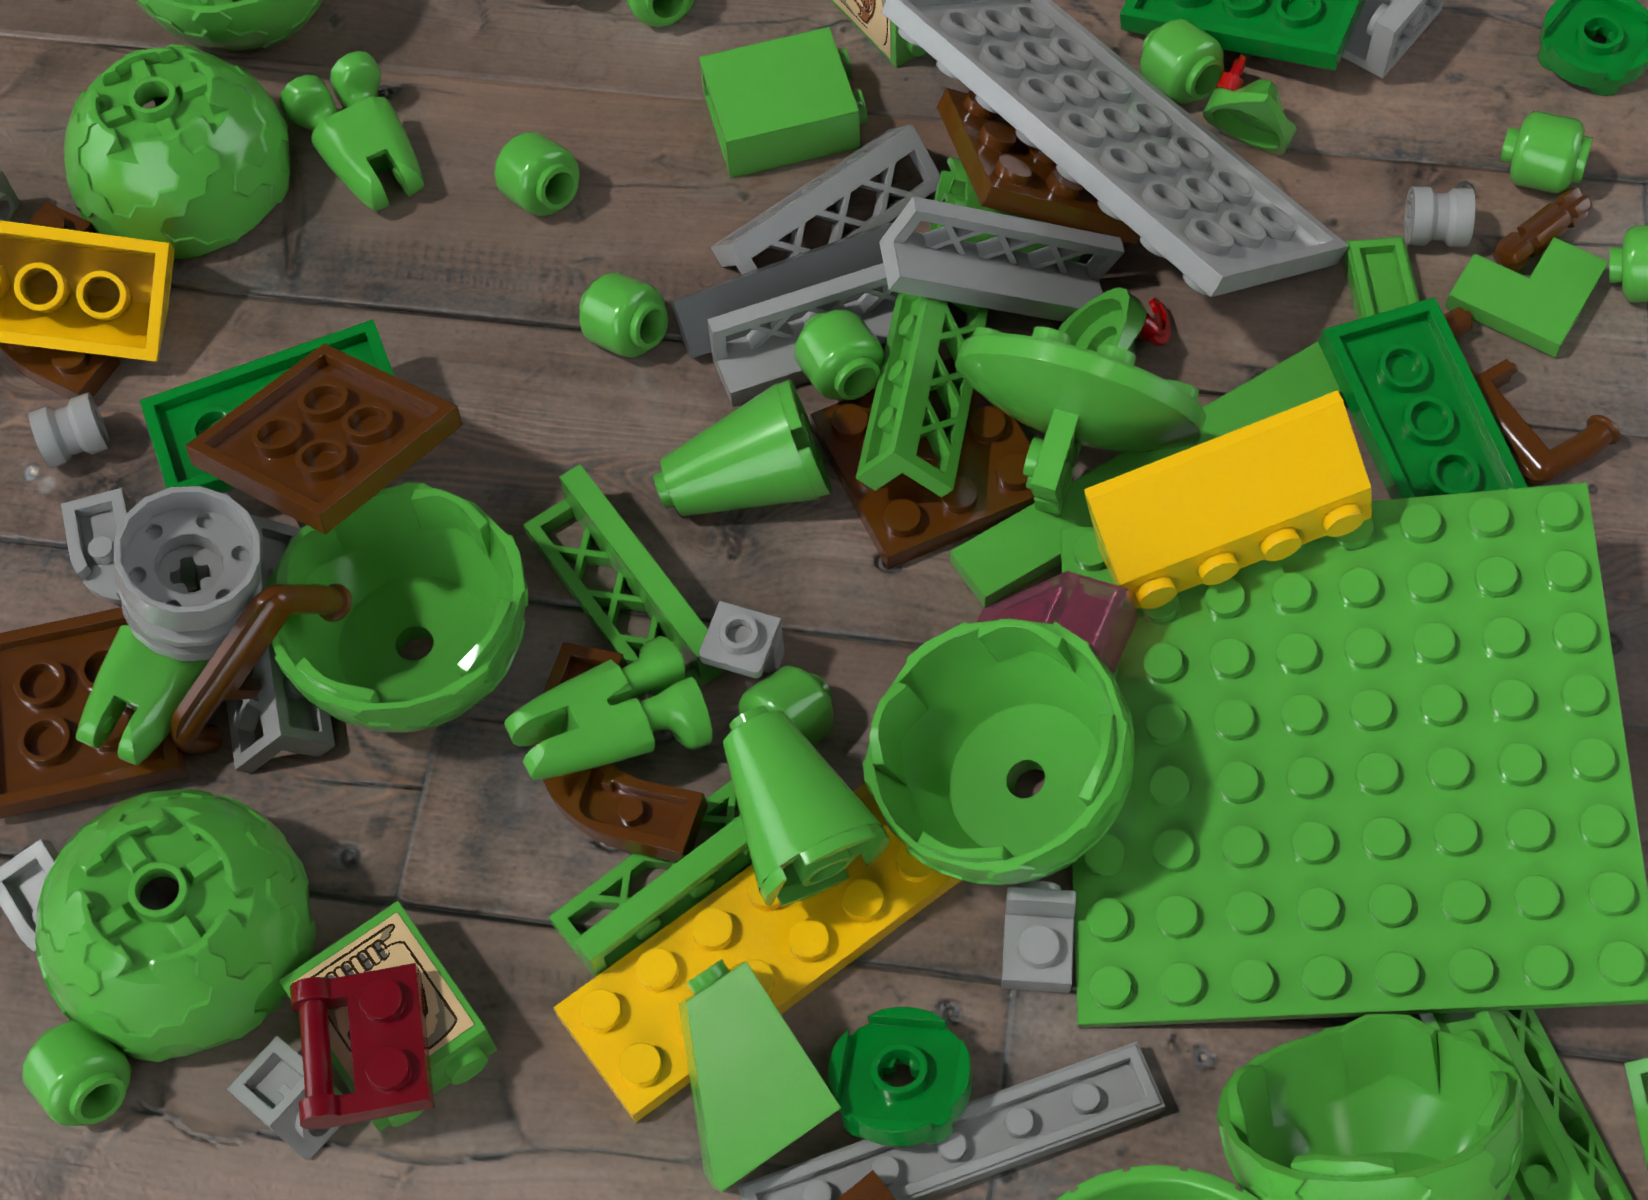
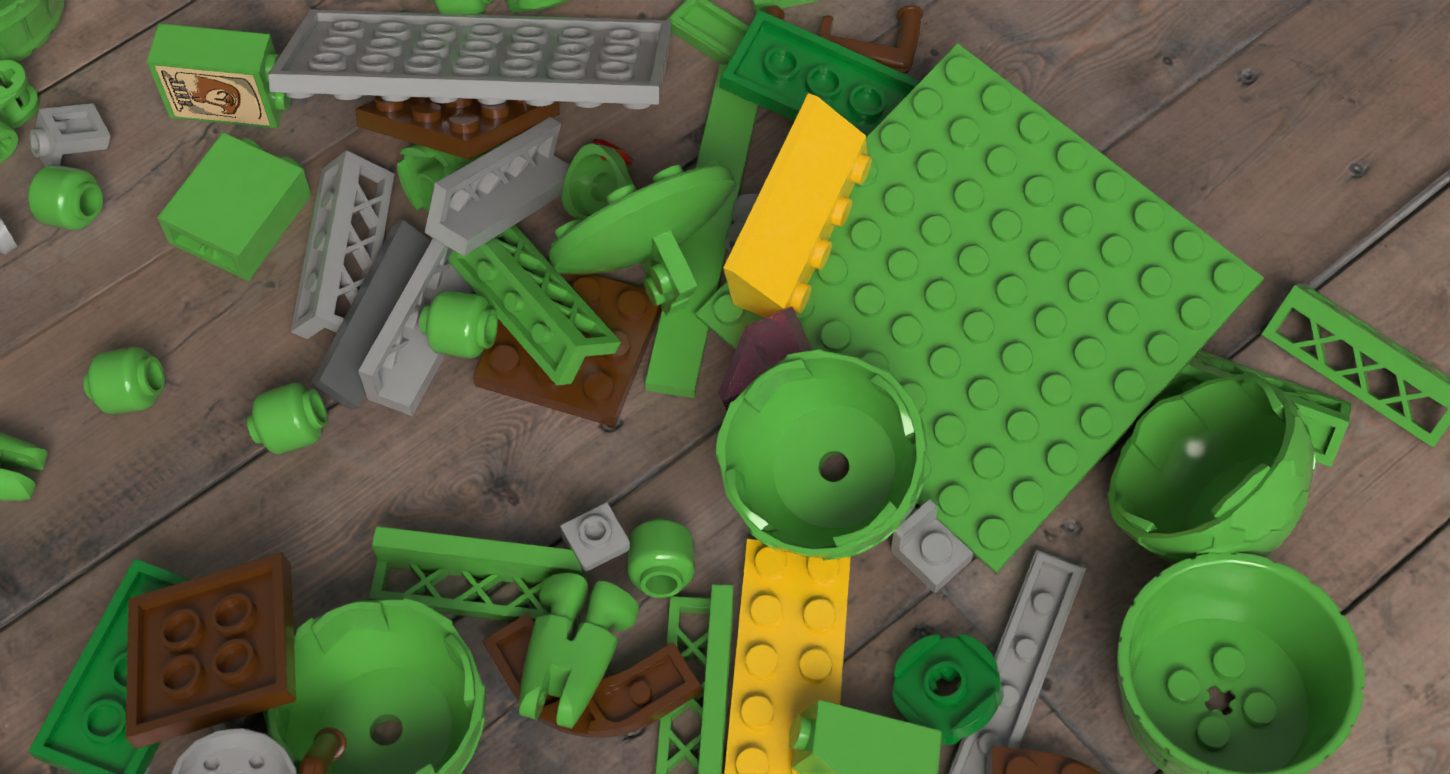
camera: 50 degrees left, 0 degrees up
(747, 459) = (473, 432): bright green cone -> none
(795, 809) = (745, 593): bright green cone -> none

